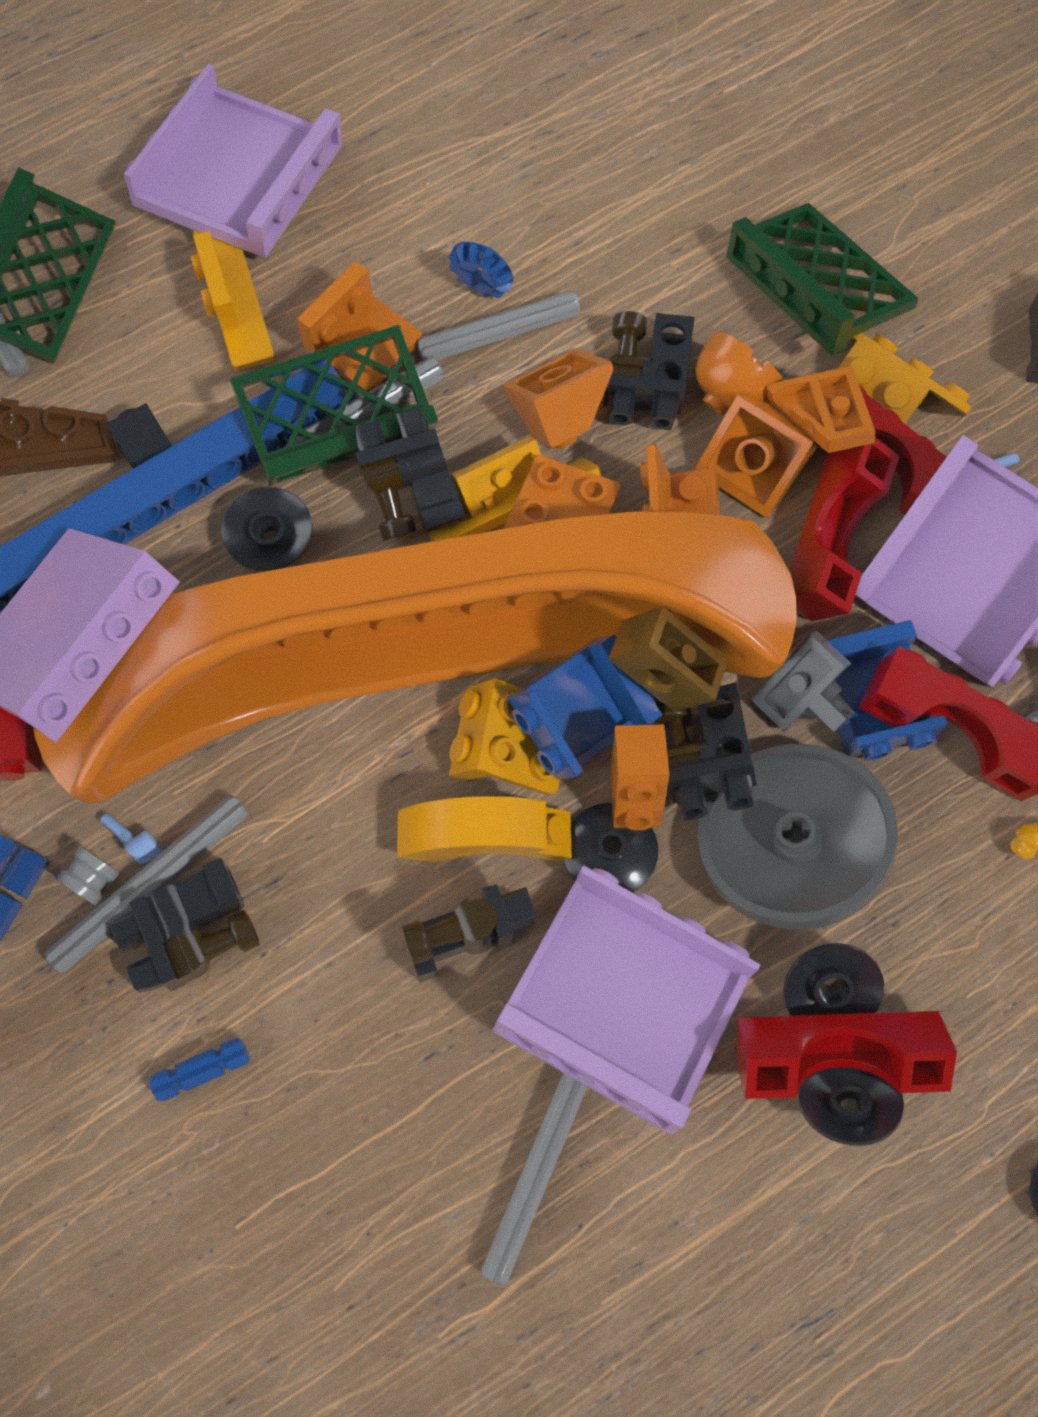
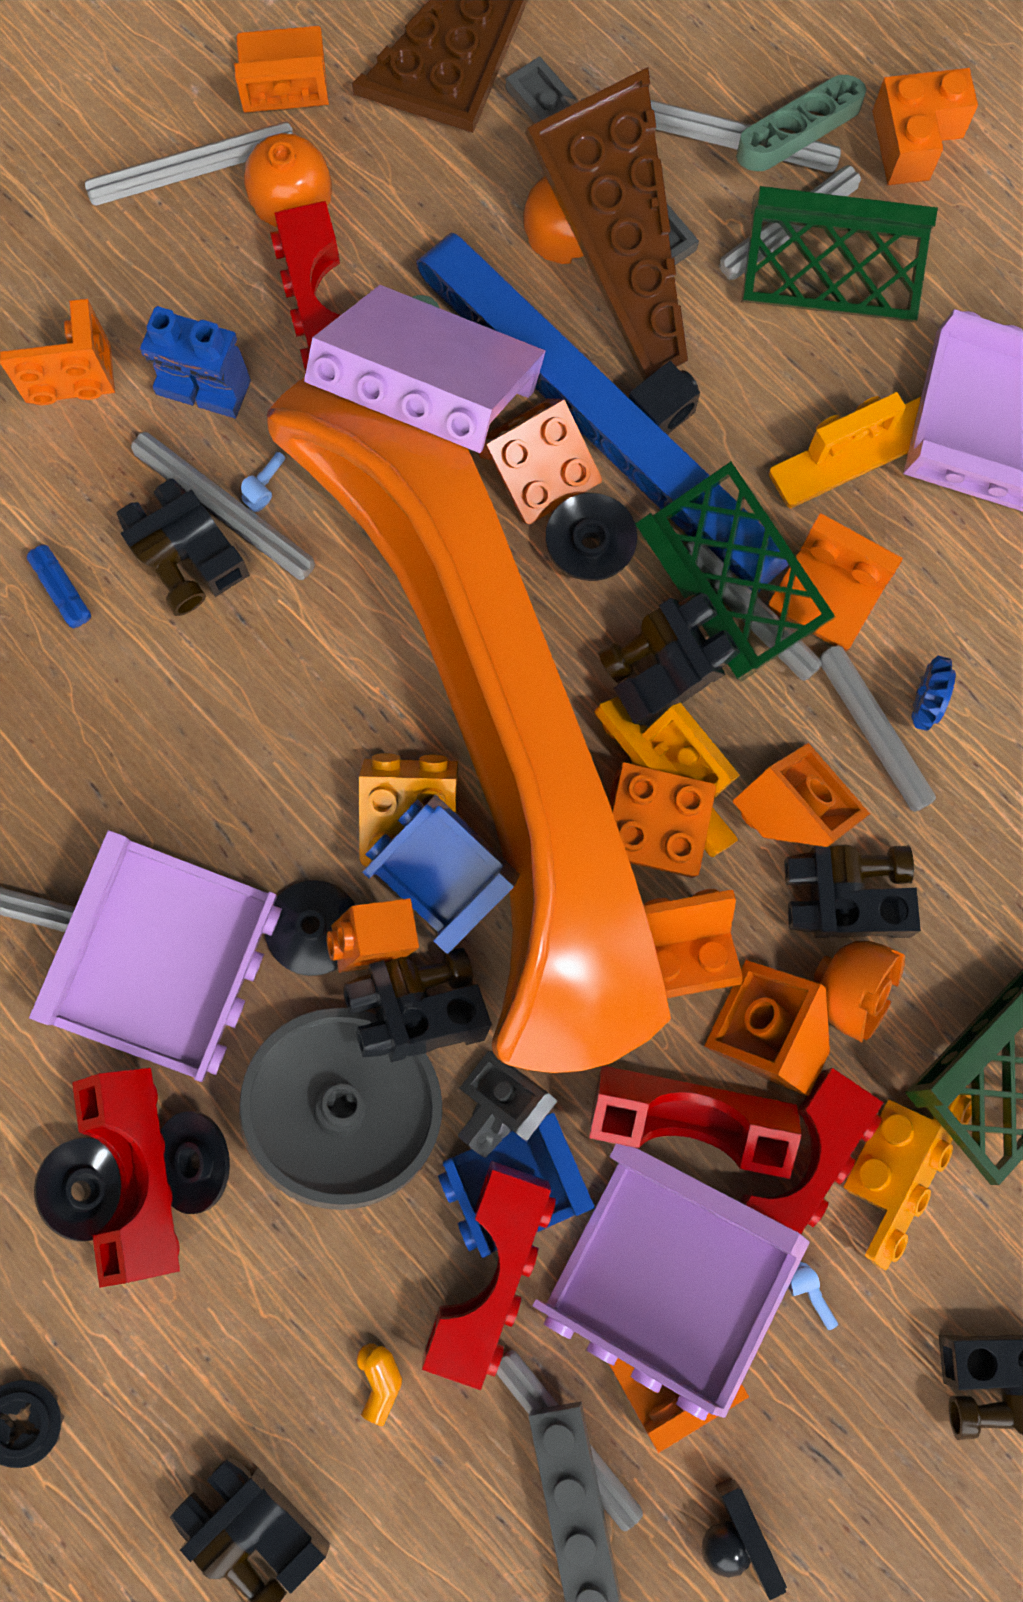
camera: 80 degrees right, 5 degrees up
(87, 875) = (219, 450): light grey wheel -> none
(182, 545) = (541, 459): none -> bracket
(469, 928) = (213, 812): hips -> none
(481, 826) = (304, 800): light orange arch -> none
(668, 659) = (490, 944): pearl gold brick -> none
(826, 408) = (825, 1086): orange wing -> none

